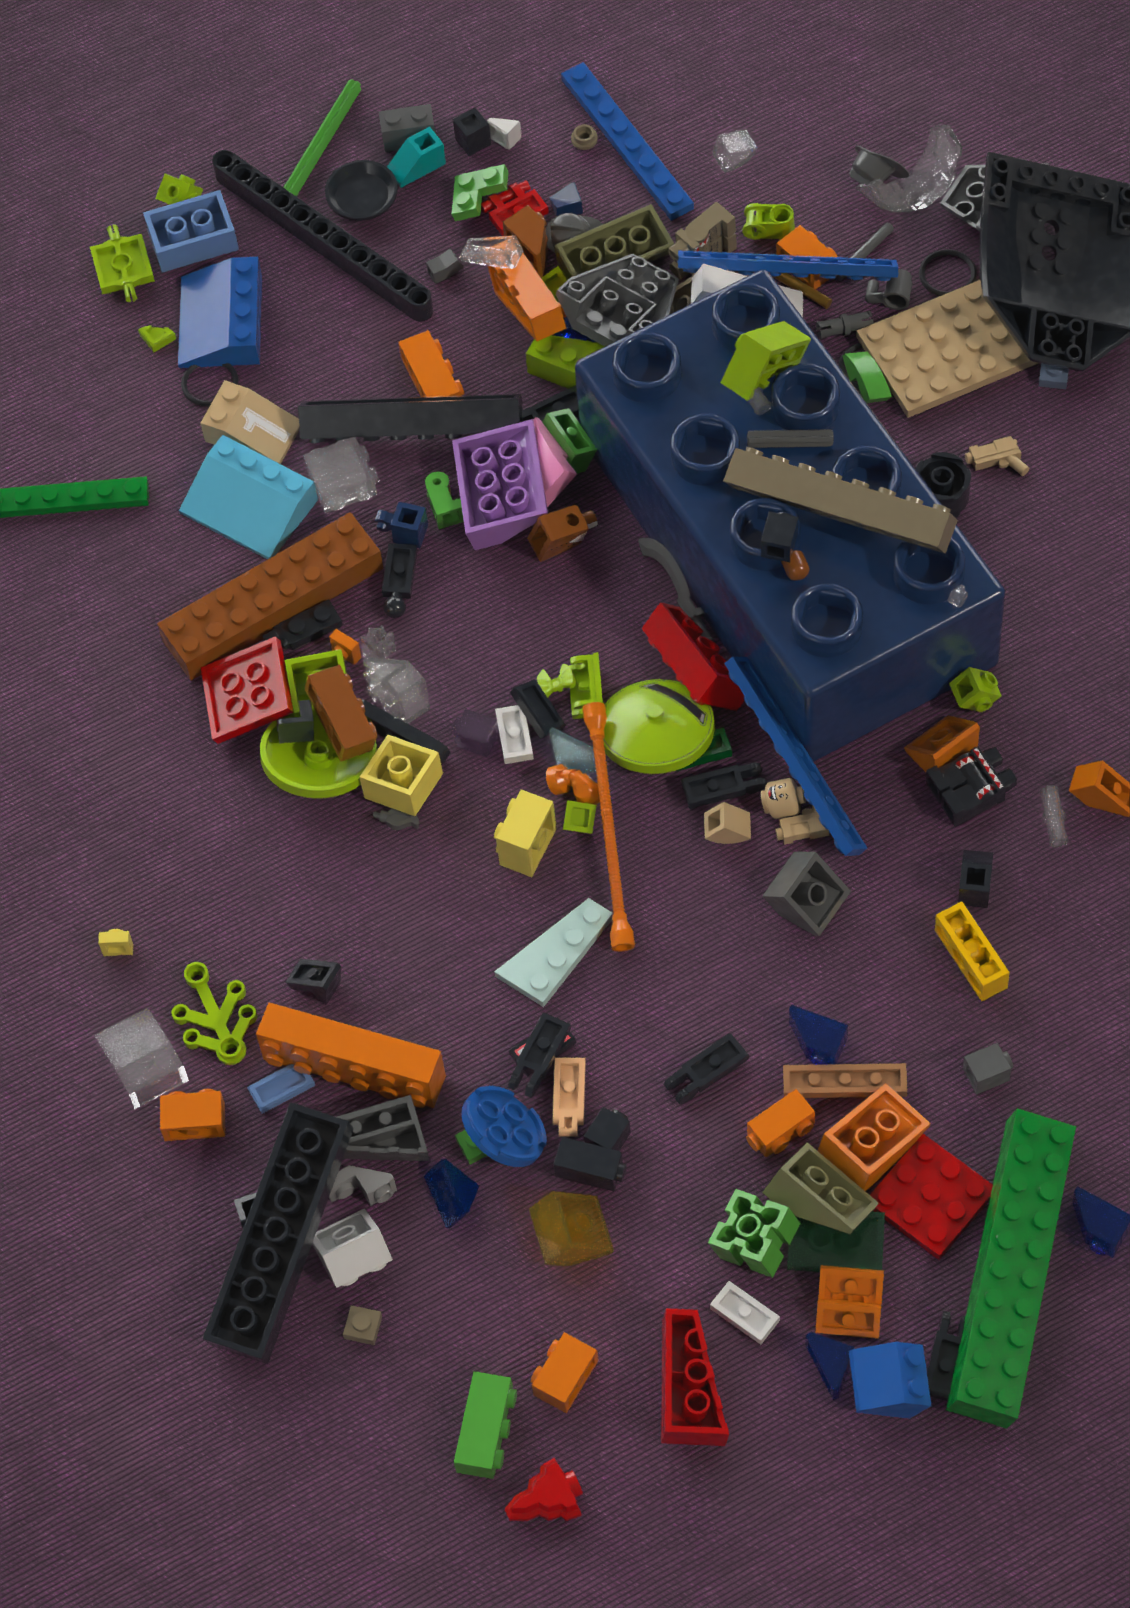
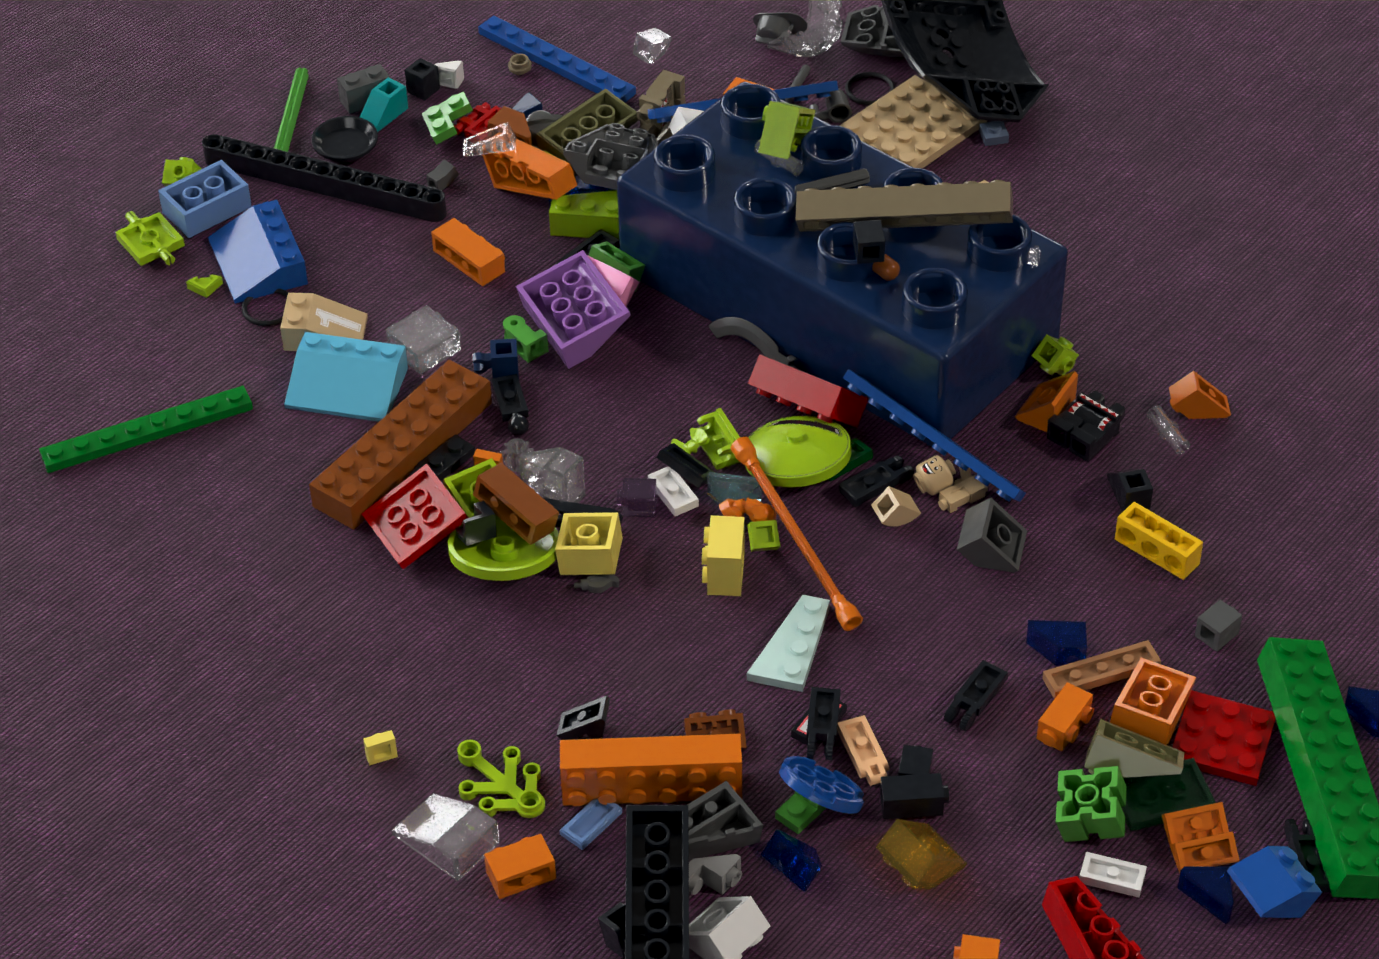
camera: 25 degrees left, 15 degrees down
(407, 417) = (464, 281): black brick -> none
(435, 1029) = (724, 723): none -> dark orange bracket
(560, 531) = (640, 332): dark orange torso -> none
(770, 220) = (707, 85): lime piece -> none

